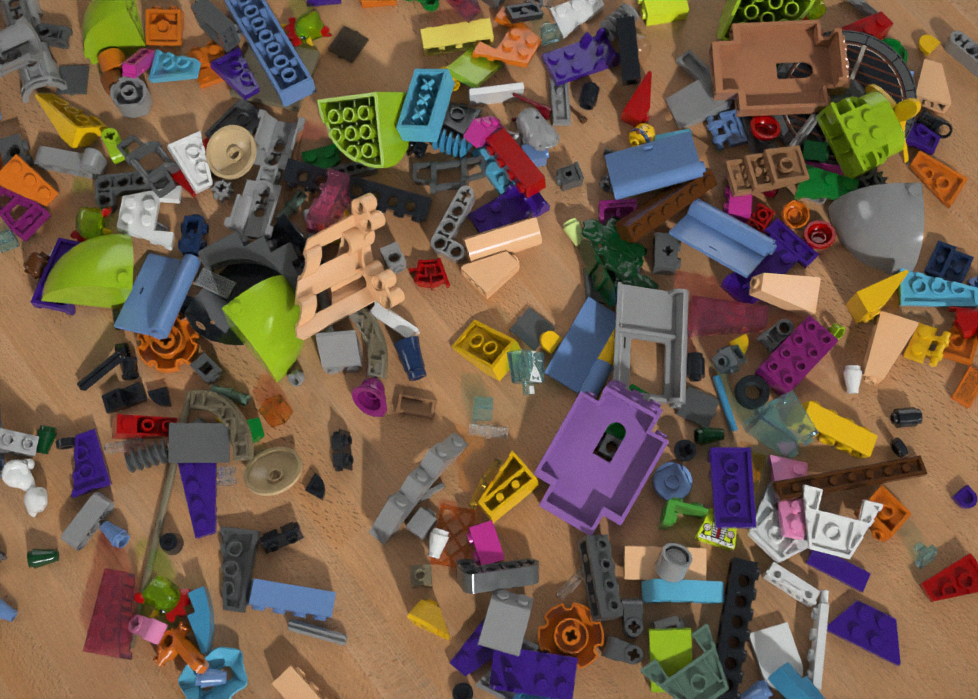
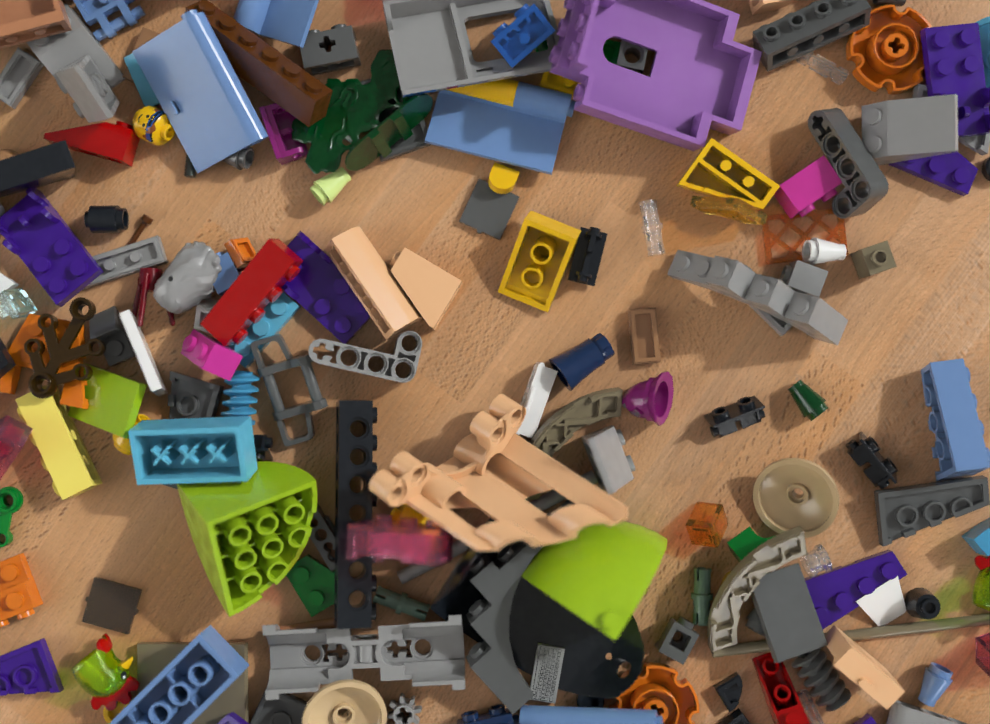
camera: 105 degrees left, 15 degrees up
(145, 480) = (862, 668): none -> light nougat container
(181, 517) = (884, 603): none -> white sticker
(296, 377) = (652, 511): light grey hinge -> none
(316, 487) = (792, 435): black tile -> none
(317, 632) = (978, 370): light grey axle -> none
(336, 503) = (807, 400): none -> dark green cone
(390, 251) = (429, 434): light grey brick -> none
(430, 274) = (448, 371): red piece -> none
(430, 618) = (938, 229): yellow wedge -> none
(480, 382) = (587, 256): none -> black hinge
(482, 409) = (628, 242): clear light blue panel -> none
(511, 48) = (60, 351): none -> dark brown plant
(518, 76) = (109, 329): none -> dark grey slope
(526, 369) = (556, 195): clear light blue torso -> none
(546, 166) = (240, 251): none -> orange tile
(568, 182) = (239, 205): dark grey brick -> none
(641, 370) = (522, 34): none -> blue bracket
(673, 103) = (88, 89): none -> light grey slope

